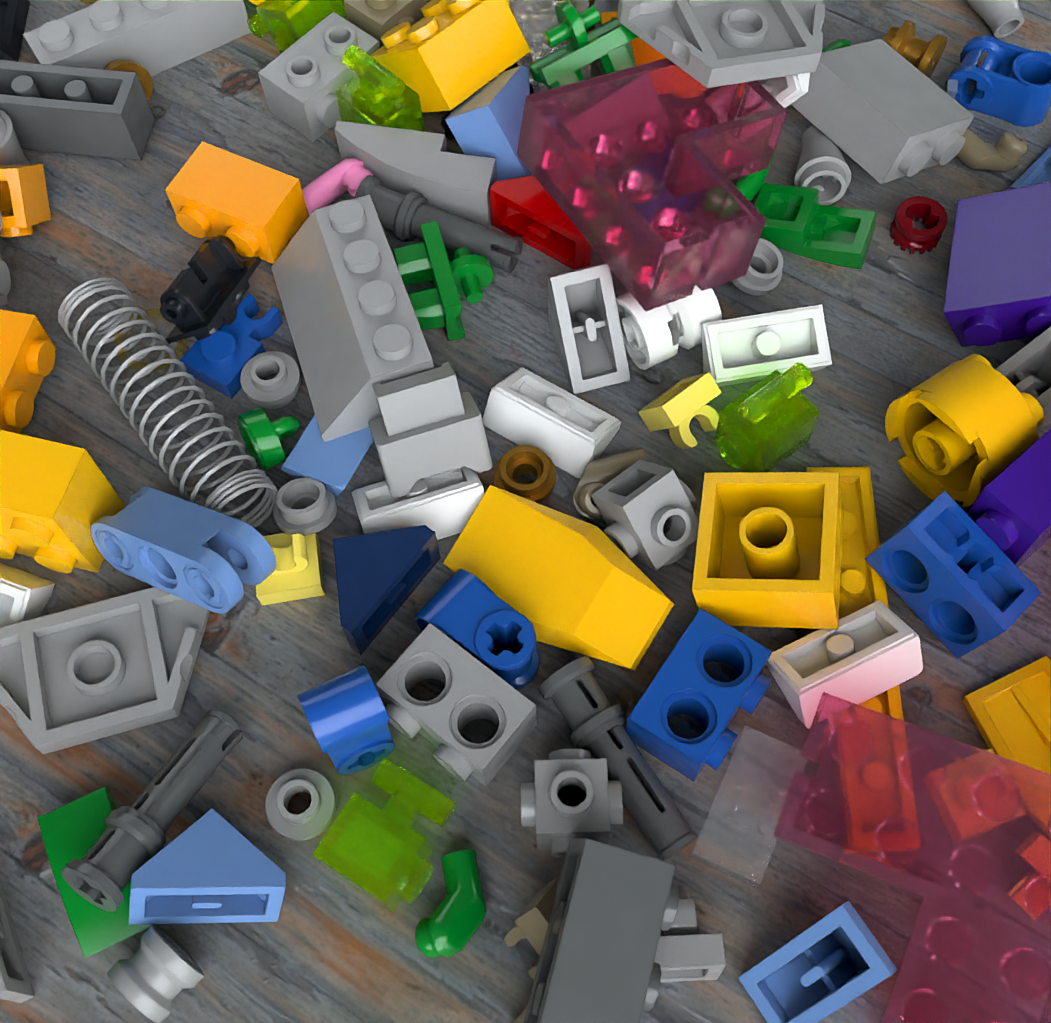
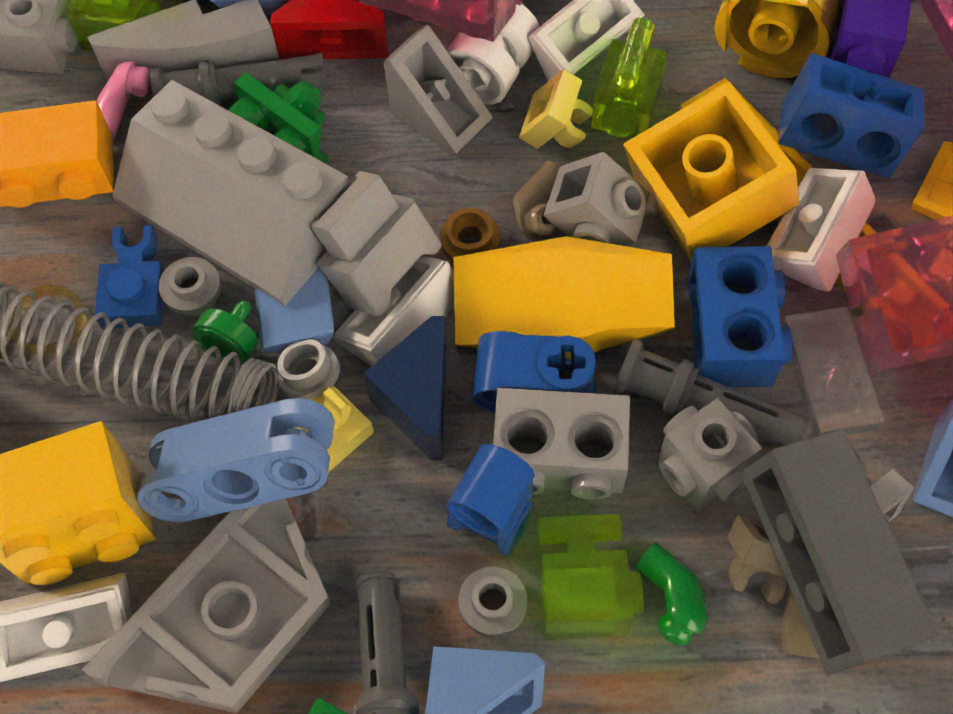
camera: 35 degrees left, 0 degrees up
(200, 300) = (79, 242): black hinge -> none
(549, 418) = (455, 182): white slope -> none

